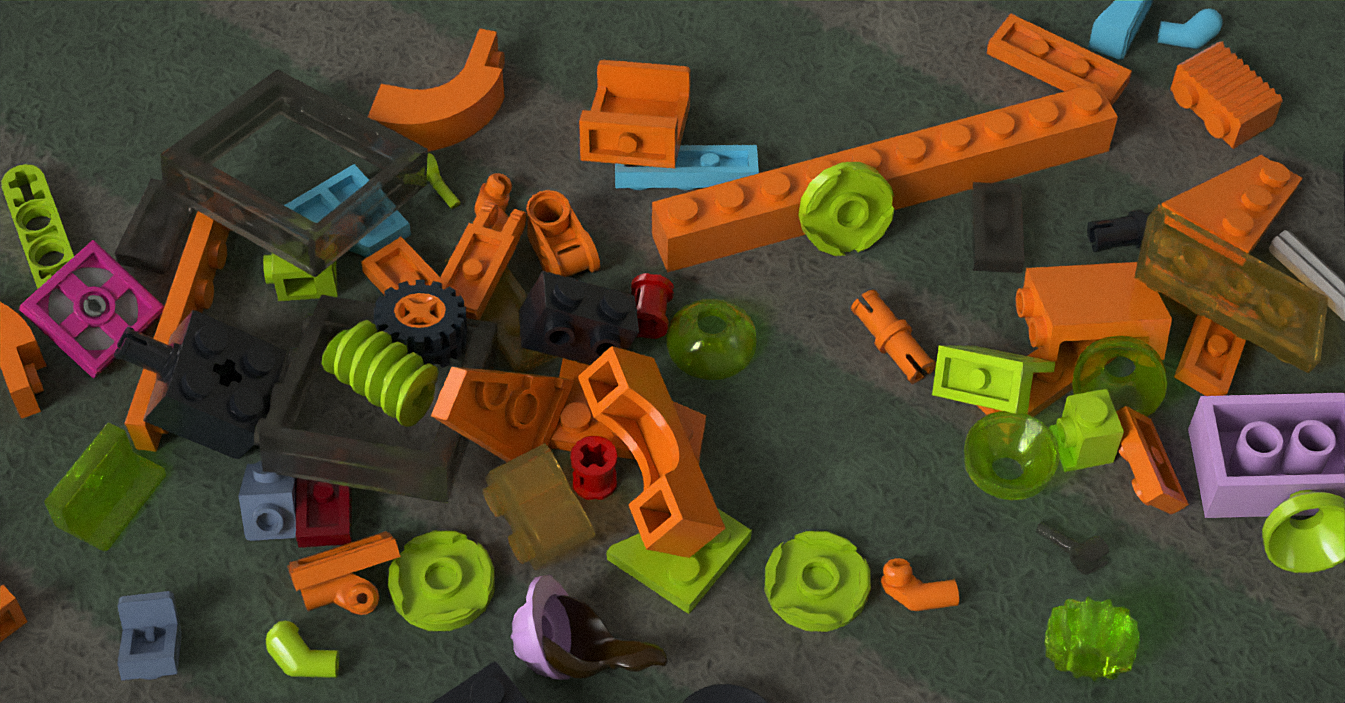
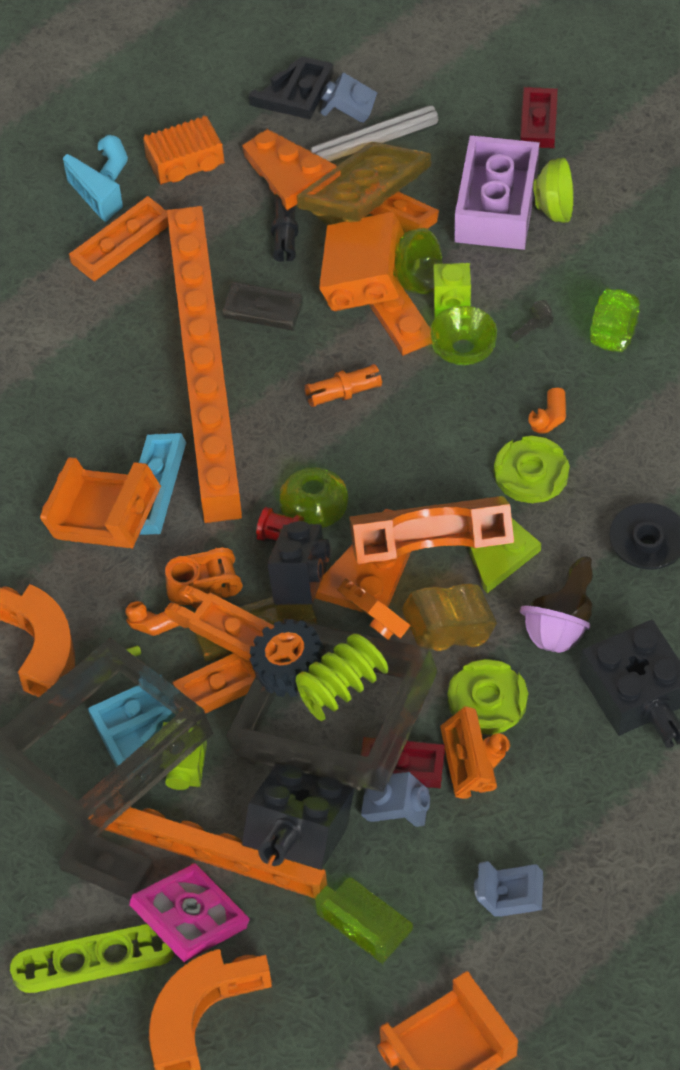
camera: 75 degrees left, 0 degrees up
(294, 655) = (535, 796): lime arm -> none
(594, 467) = (423, 575): red bush -> none
(846, 208) = (235, 382): lime tile -> none
(986, 377) = (399, 331): lime panel -> none
(1154, 475) = (495, 265): orange plate -> none

